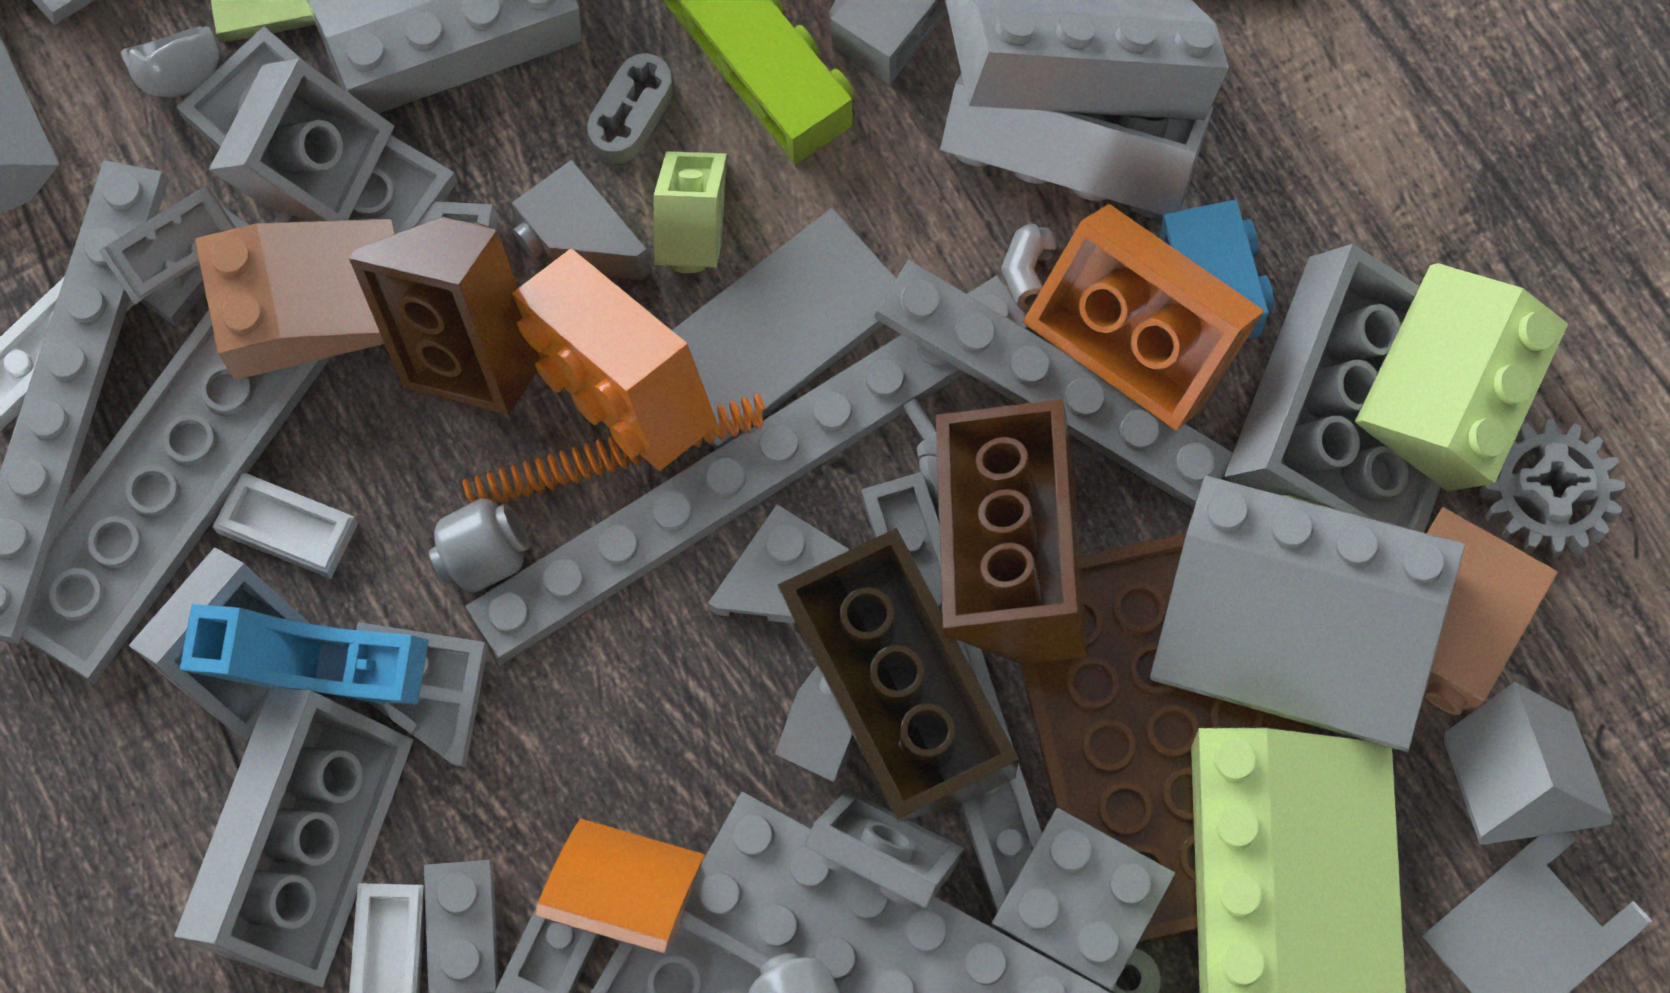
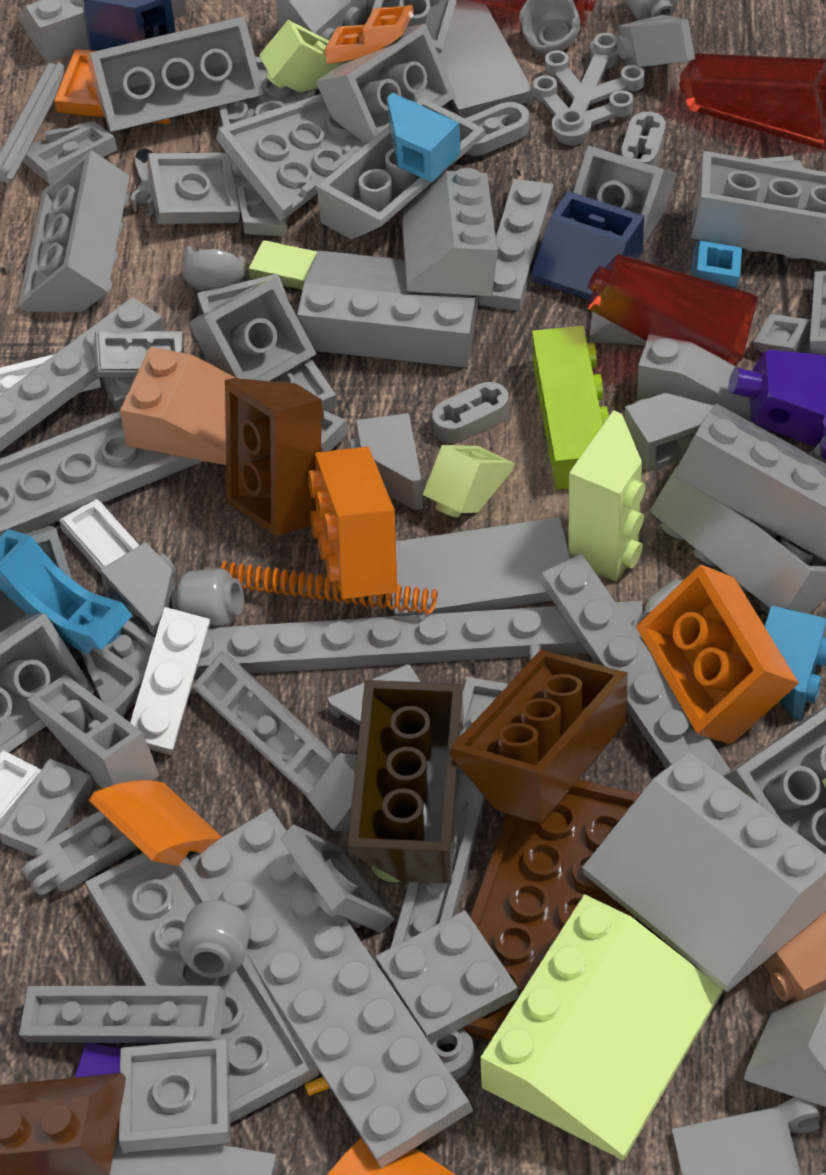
camera: 30 degrees right, 20 degrees down
(391, 576) = (142, 584): none -> light grey slope
(464, 809) = (94, 734): none -> light grey slope
(506, 686) = (169, 678): none -> white plate
(665, 679) = (264, 722): none -> light grey plate
(910, 172) = (606, 501): none -> yellowish green slope

